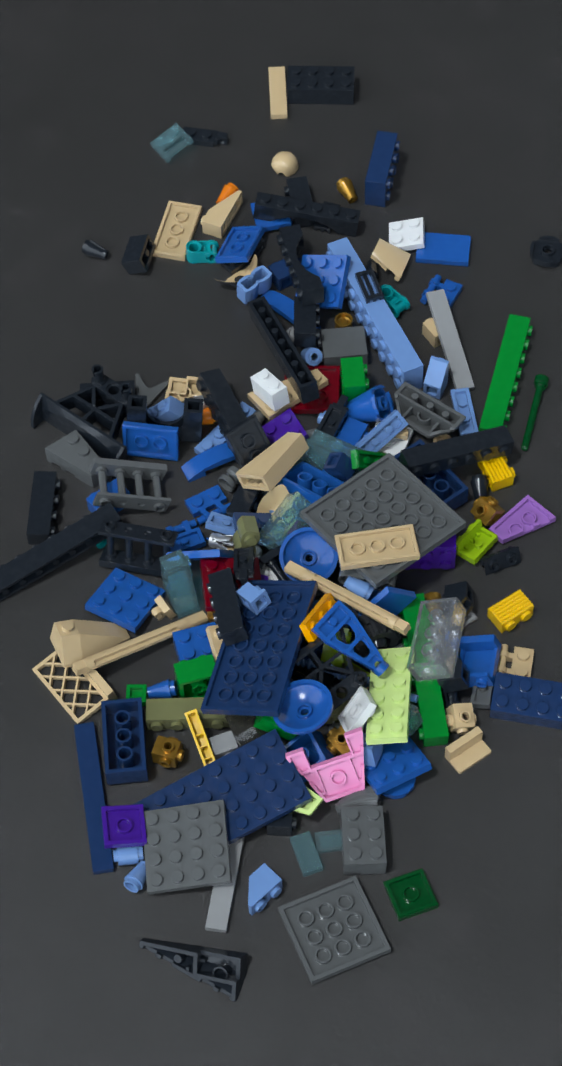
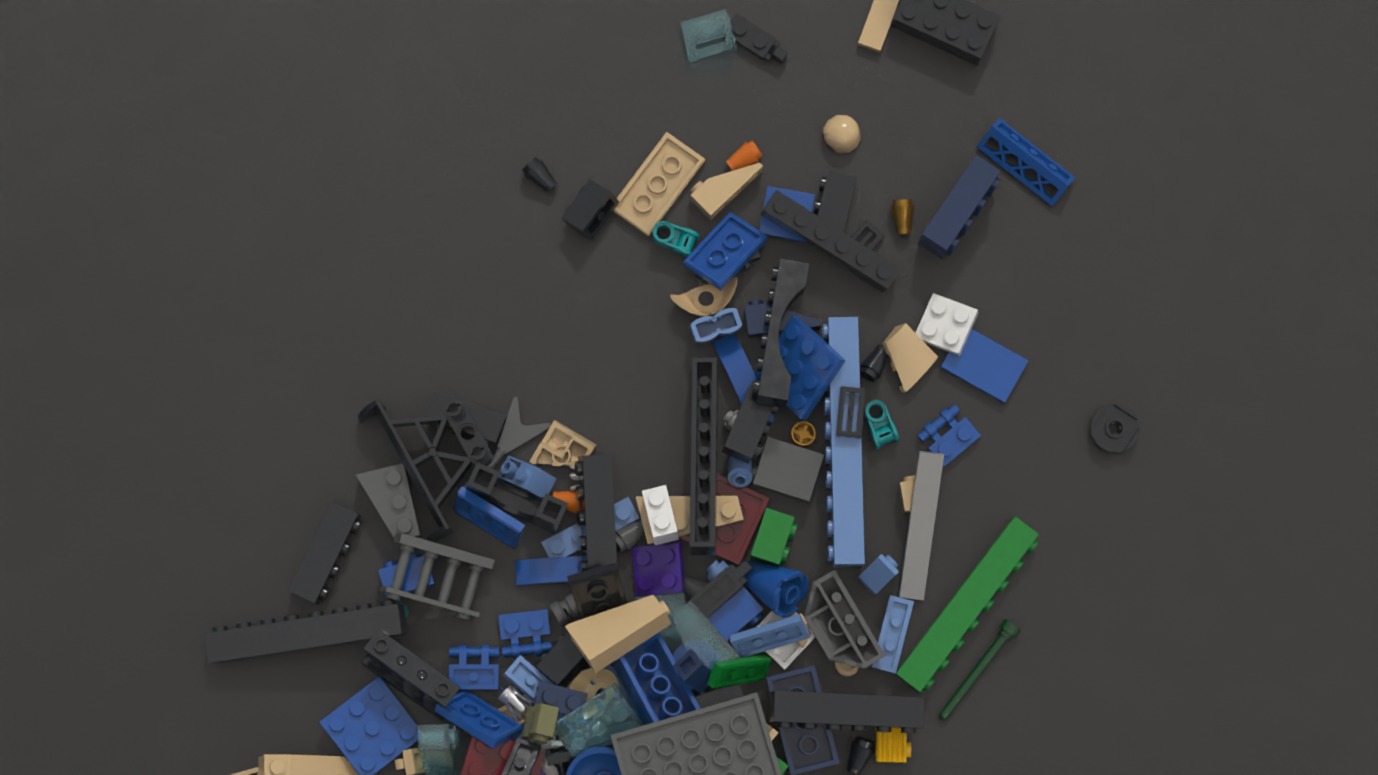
camera: 20 degrees right, 25 degrees up
(416, 133) = (1029, 154): none -> blue fence

